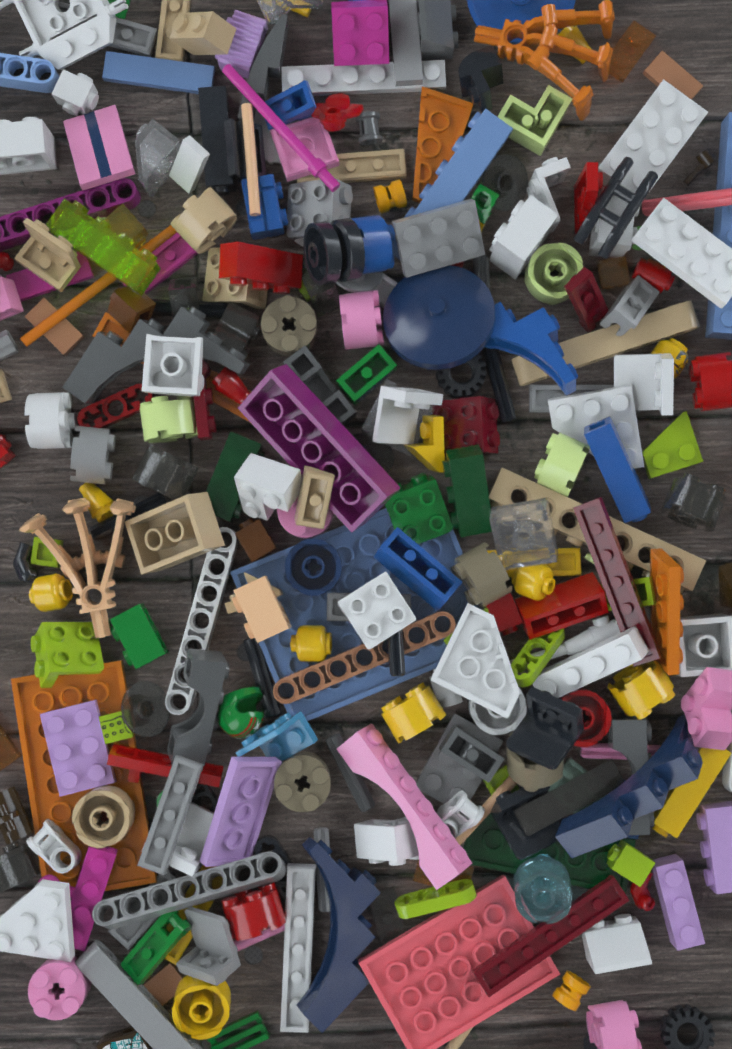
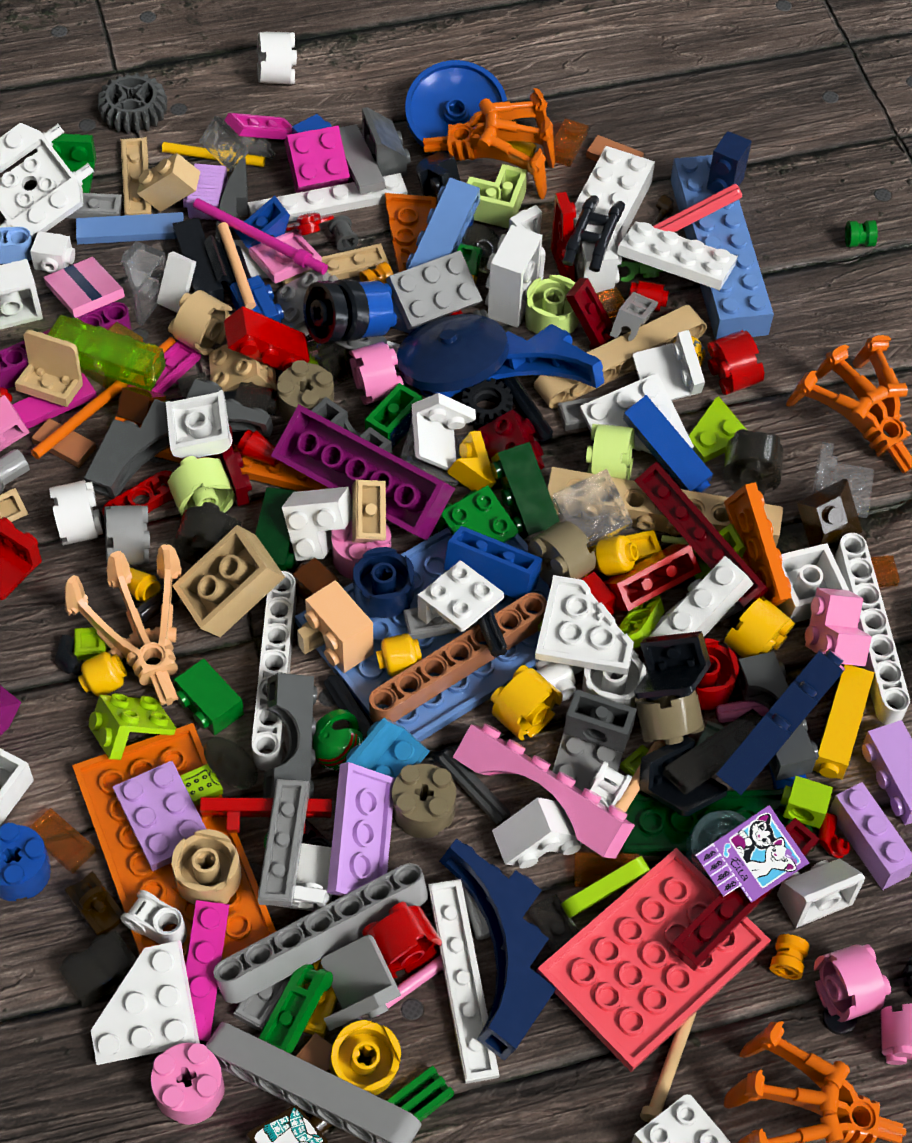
camera: 15 degrees left, 30 degrees down
(564, 915) = (753, 856): none -> sticker

